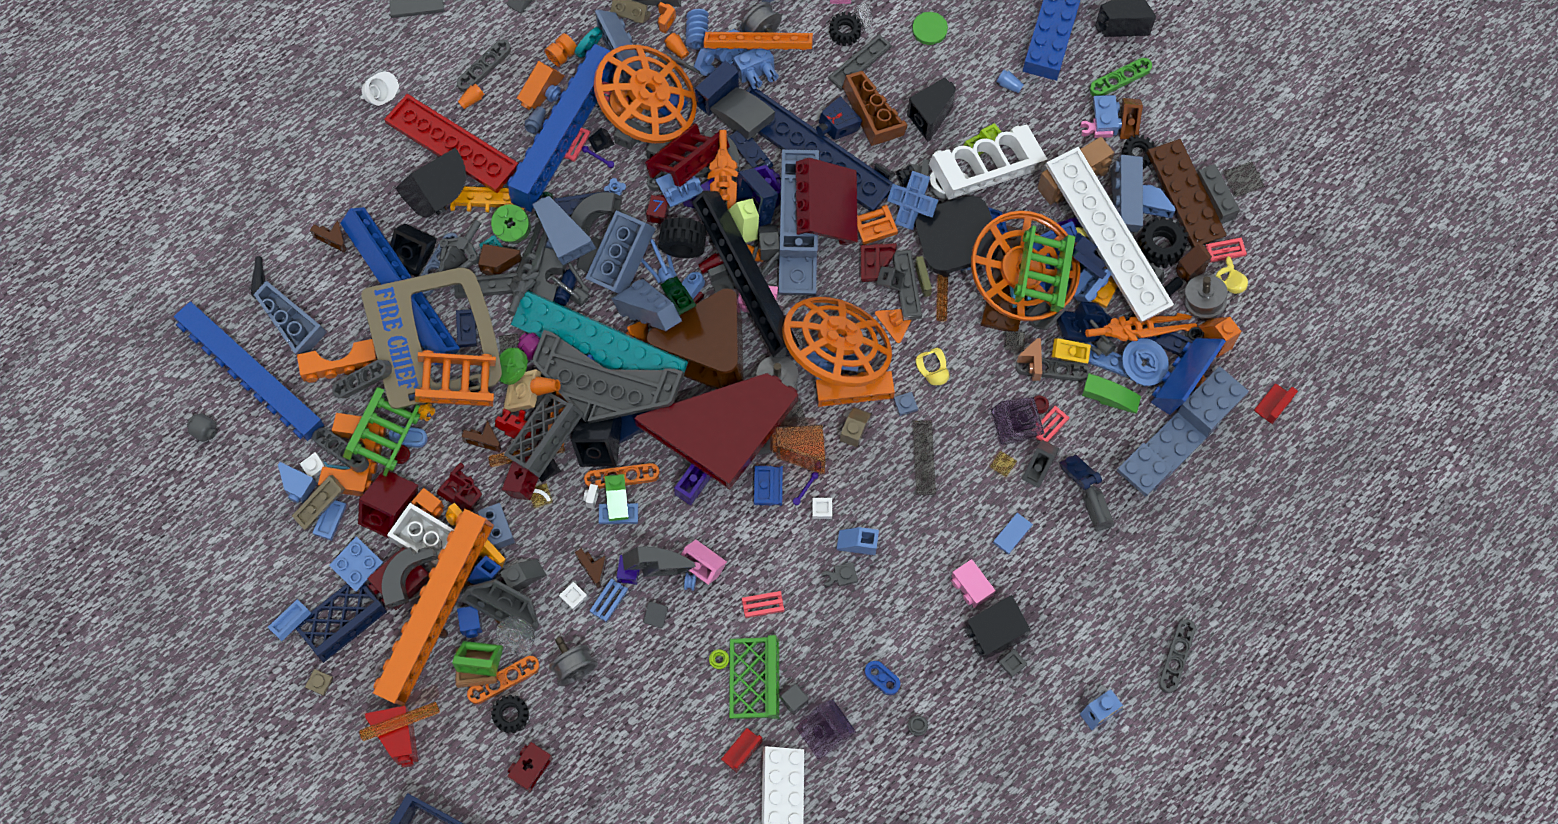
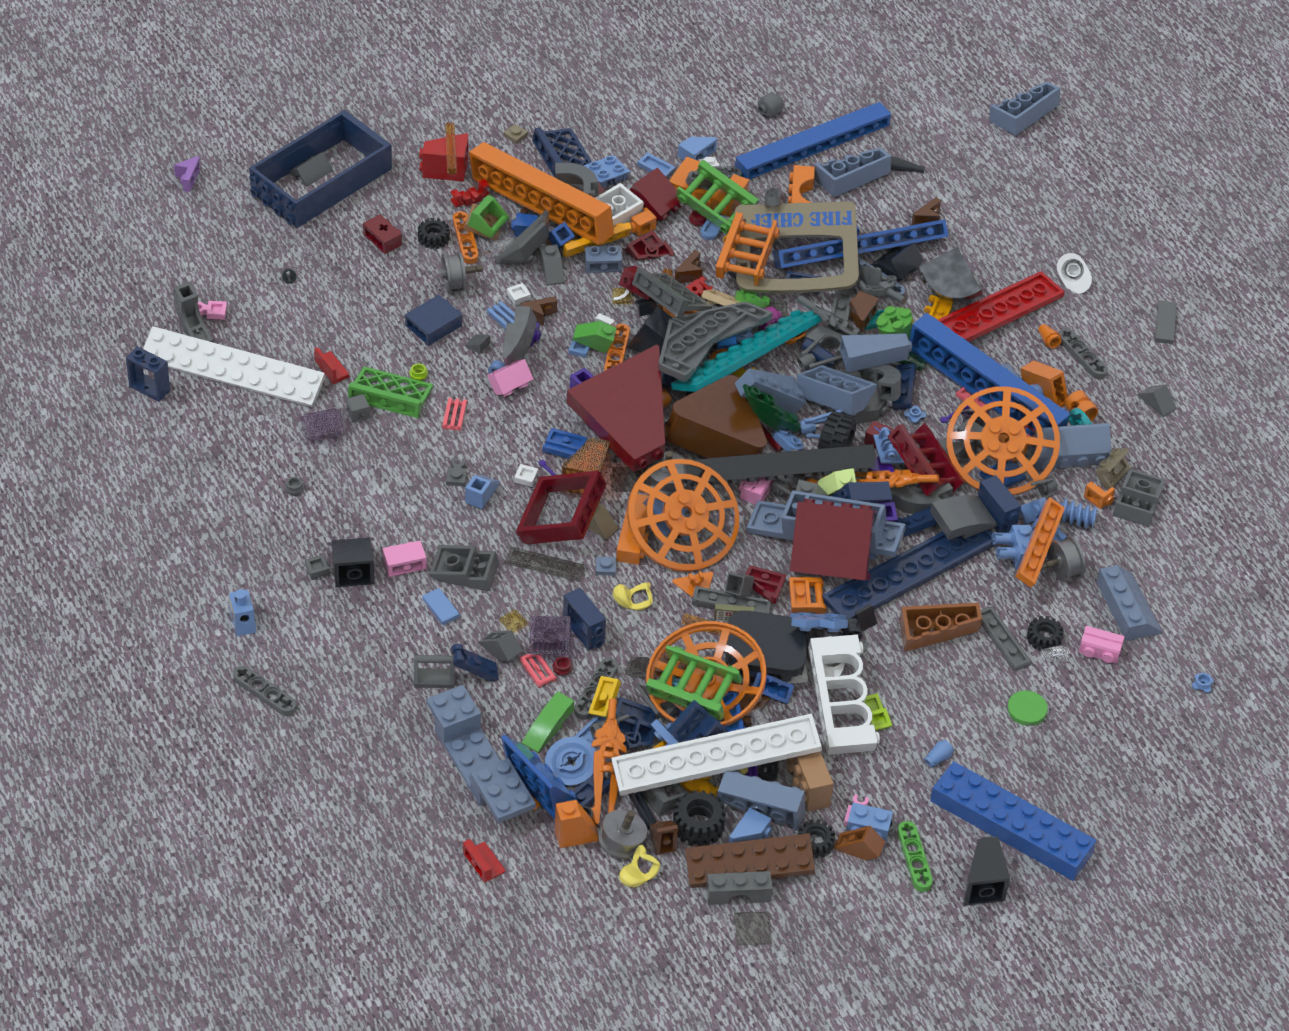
camera: 105 degrees right, 20 degrees down
(148, 182) = (1026, 108): none -> sand blue wedge
(289, 620) = (576, 125): medium blue tile -> none
(318, 502) = (670, 155): dark tan plate -> none
(436, 694) = (470, 196): none -> red piece
(544, 385) = (716, 299): orange cone -> none
(642, 667) = (433, 320): none -> dark blue brick
(676, 45) = (1066, 492): orange cone -> none
(838, 120) = (935, 590): dark blue torso -> none
(866, 423) = (593, 487): none -> dark red window
(882, 678) = (347, 473): blue plate -> none
(931, 107) = (920, 668): black slope -> none
(959, 527) = (465, 566): none -> dark grey slope
(989, 394) = (586, 619): none -> dark blue window
(1033, 356) = (608, 667): nougat slope -> none
(1224, 243) = (671, 895): coral tile -> none

